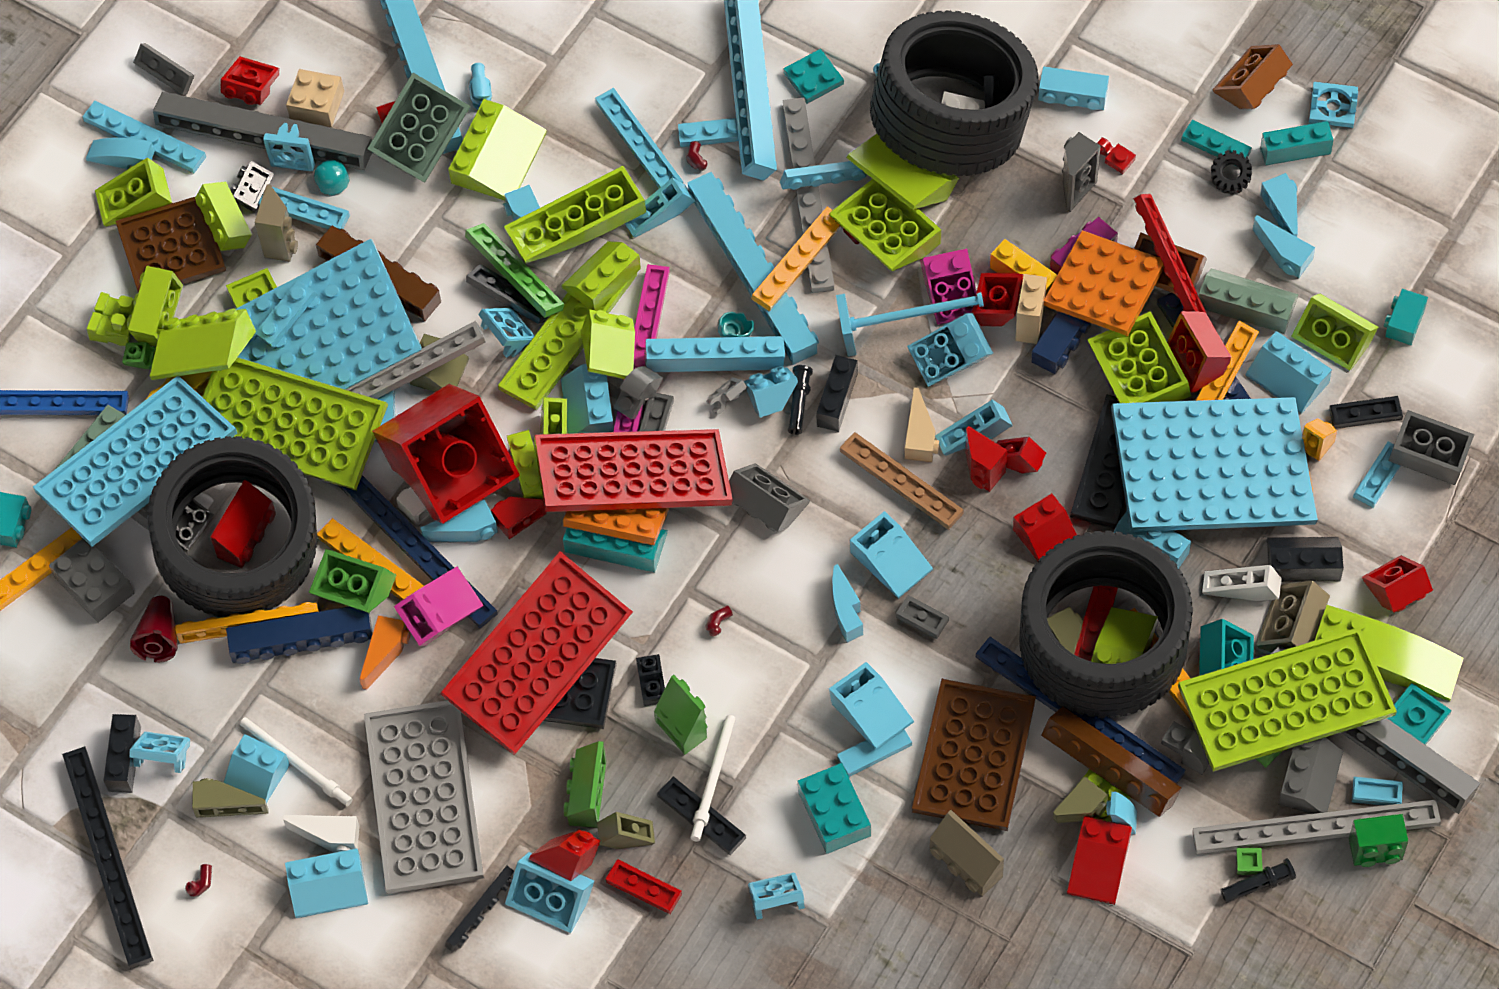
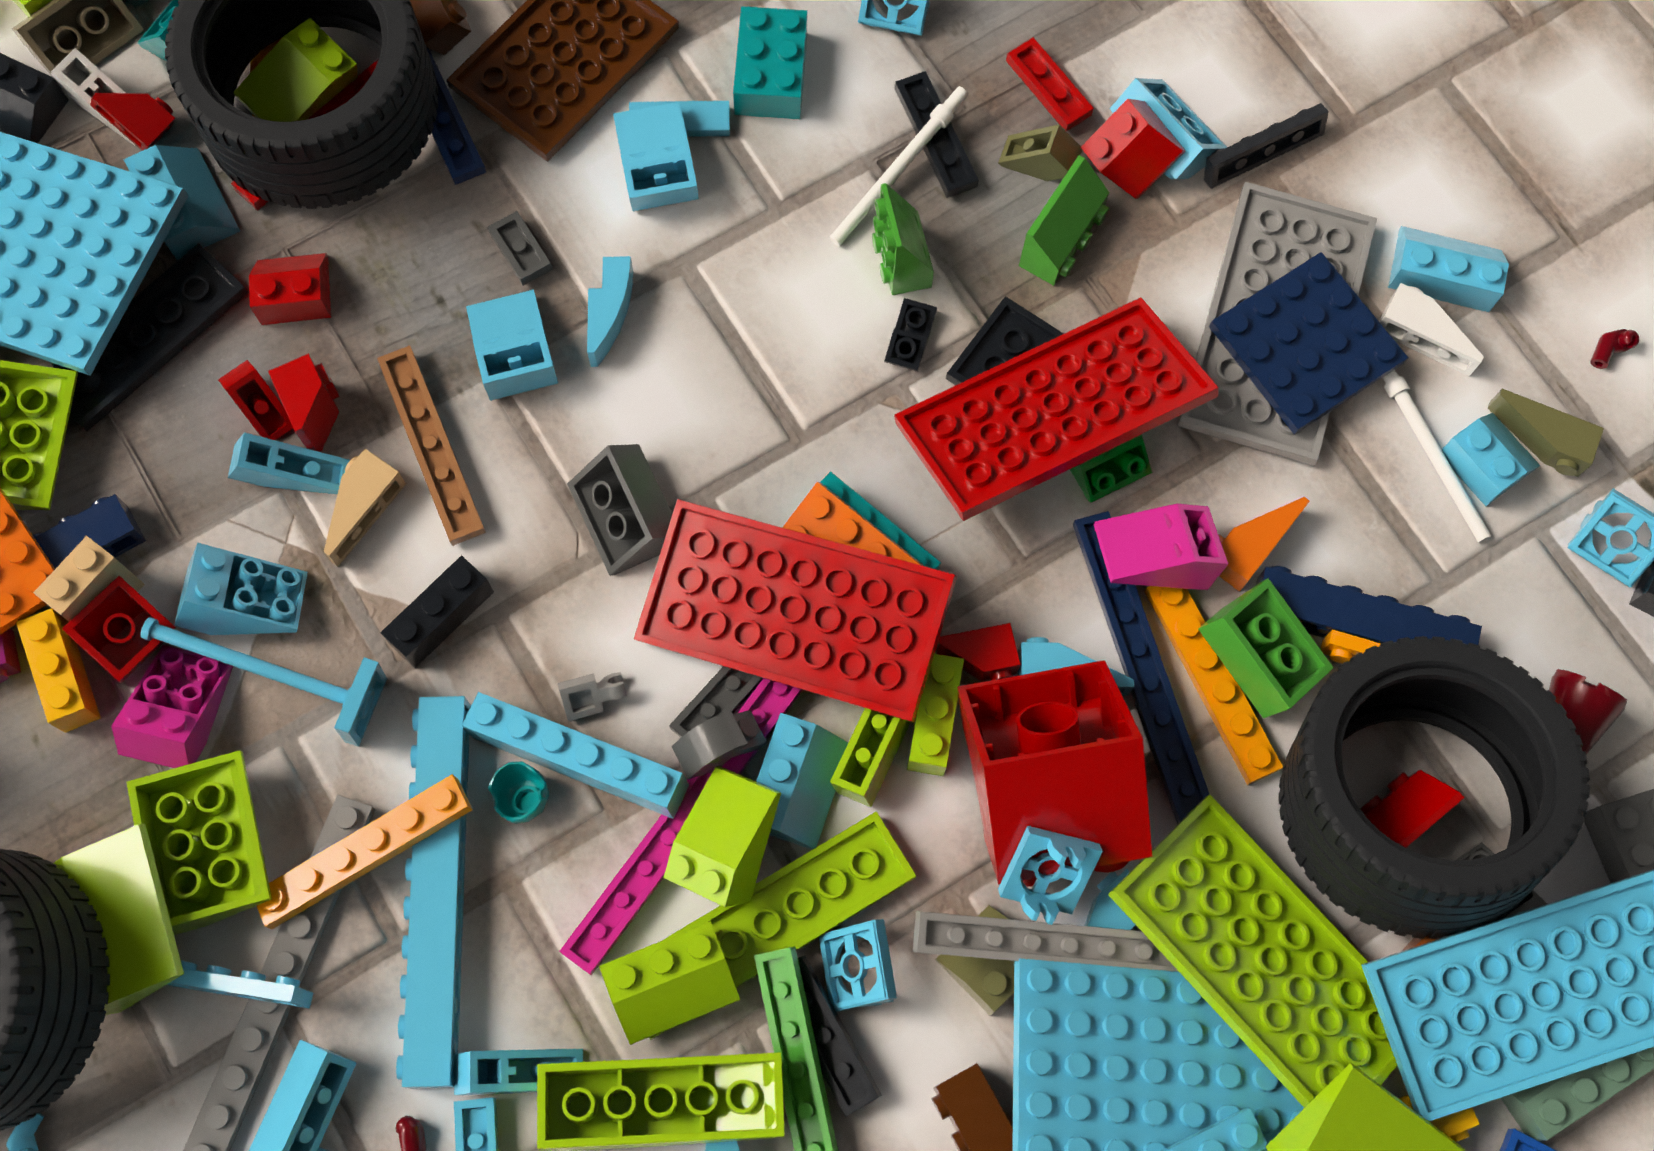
camera: 160 degrees left, 10 degrees up
(398, 781) = (1308, 342): none -> dark blue plate
(421, 394) = (1082, 856): none -> medium azure piece
(715, 619) = (786, 374): dark red arm -> none
(771, 390) = (524, 664): medium azure slope -> none
(799, 393) = (485, 648): black pin -> none
(1209, 575) = (135, 116): none -> red slope

